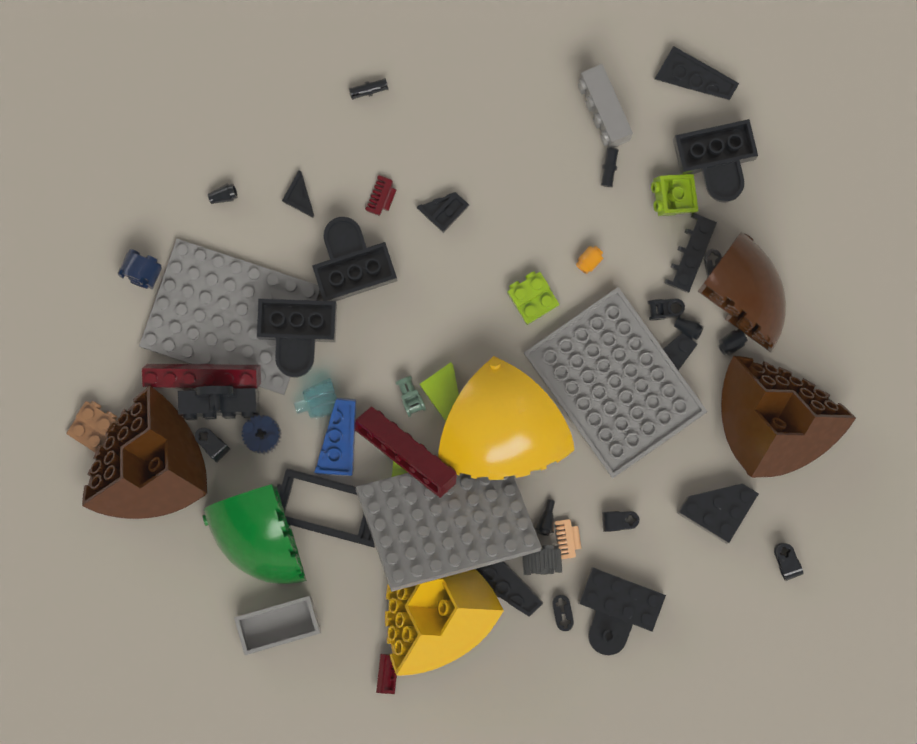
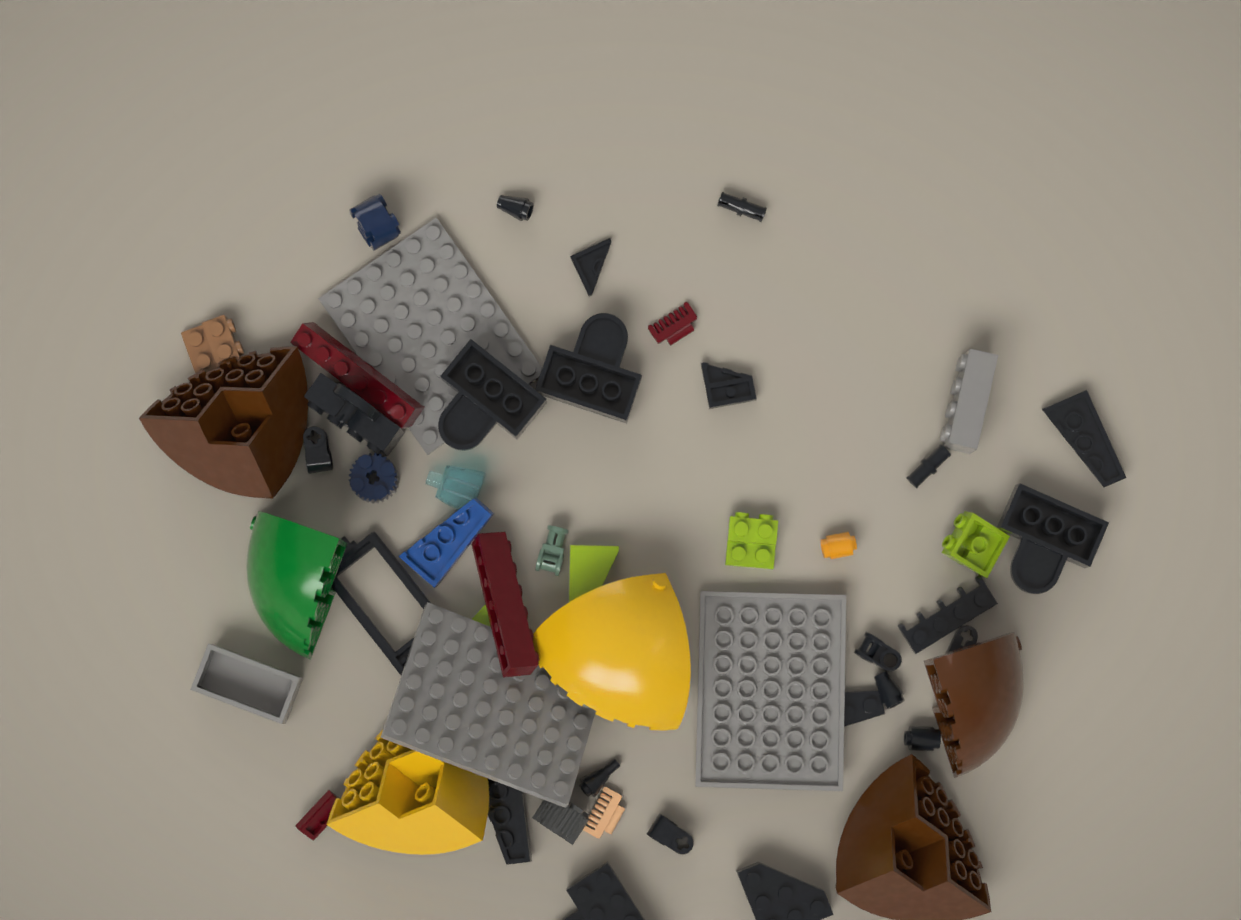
camera: 35 degrees right, 0 degrees up
(558, 614) = (538, 883): black beam -> none

